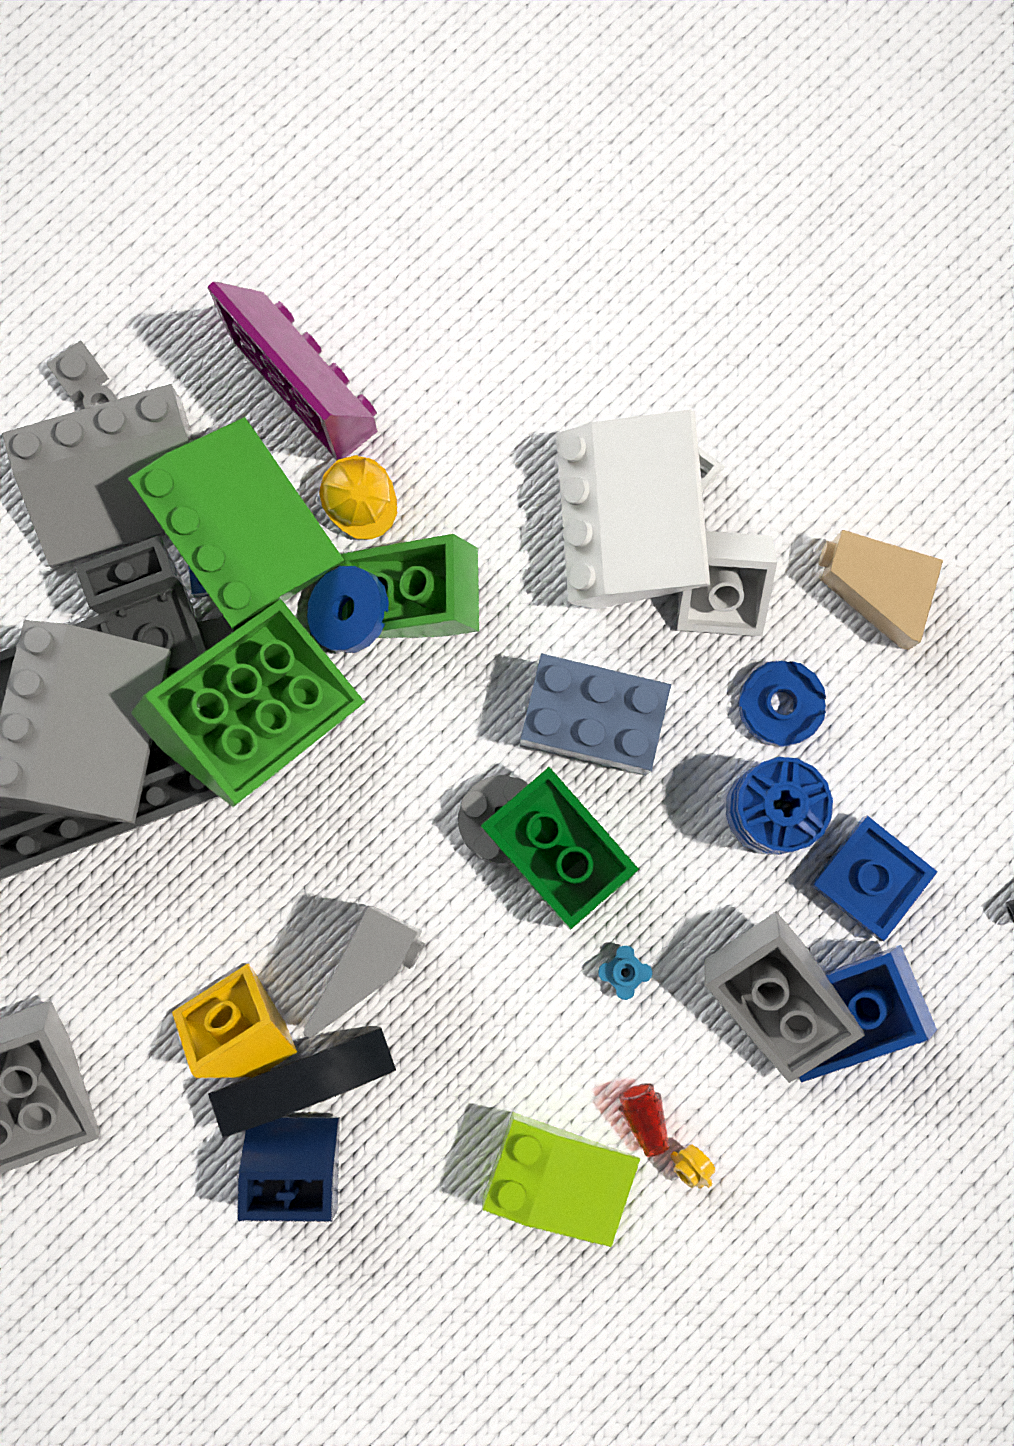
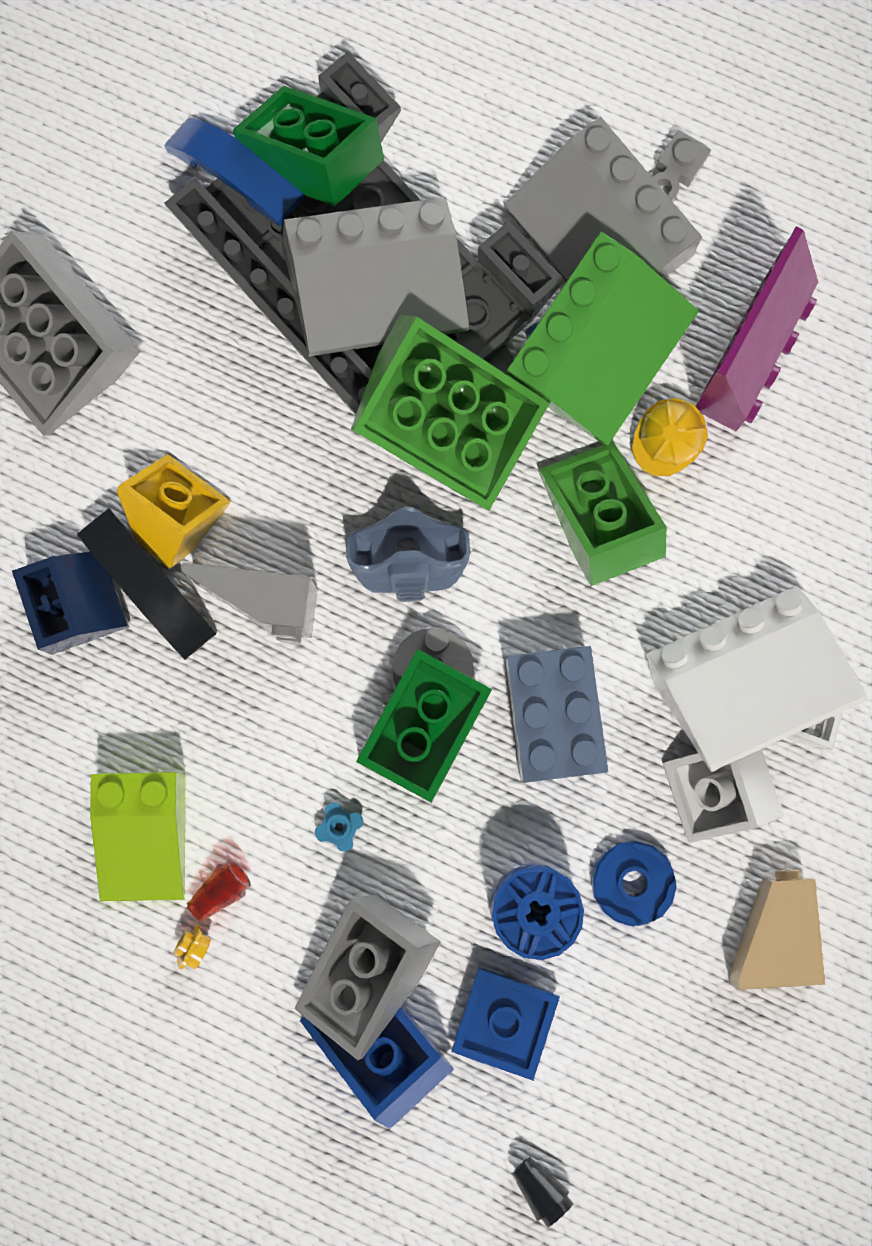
camera: 75 degrees right, 0 degrees up
(326, 608) = (564, 447): blue tile -> none
(381, 833) = (408, 573): none -> sand blue piece

